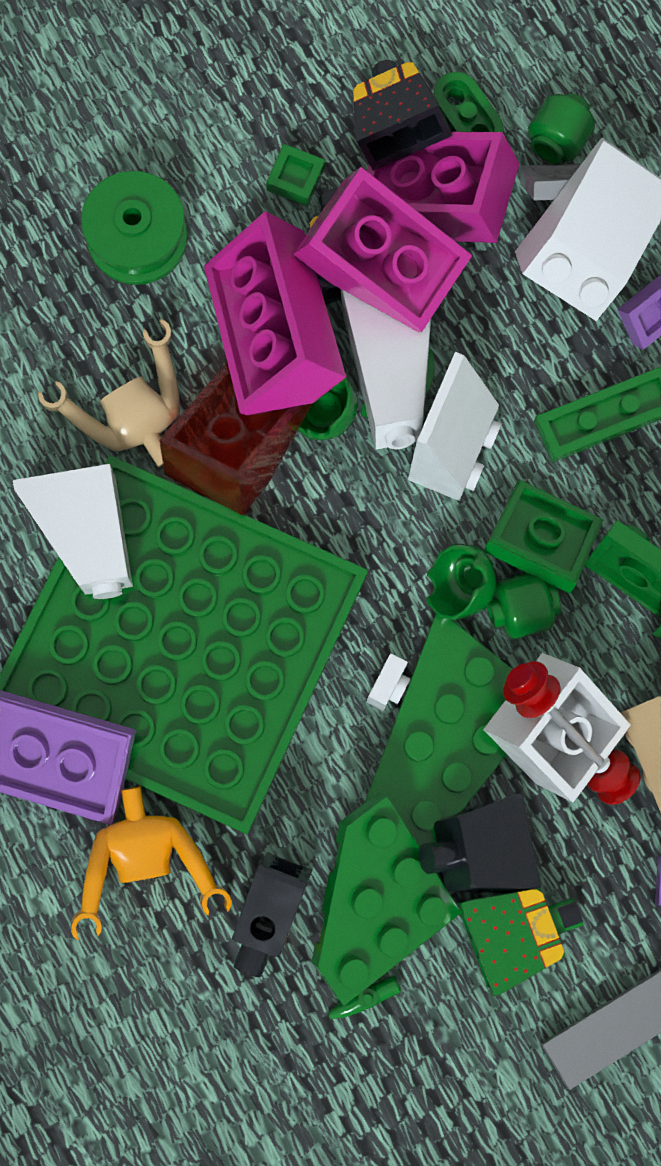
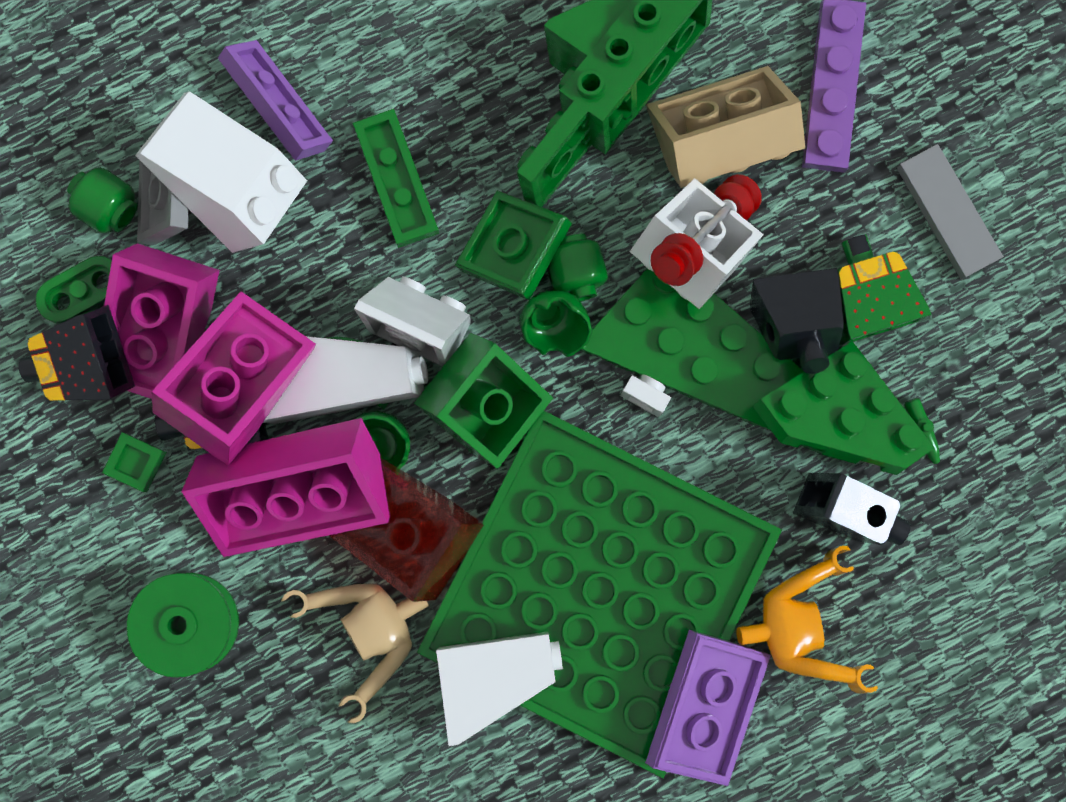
camera: 90 degrees left, 5 degrees up
(371, 506) = (484, 399): none -> green brick

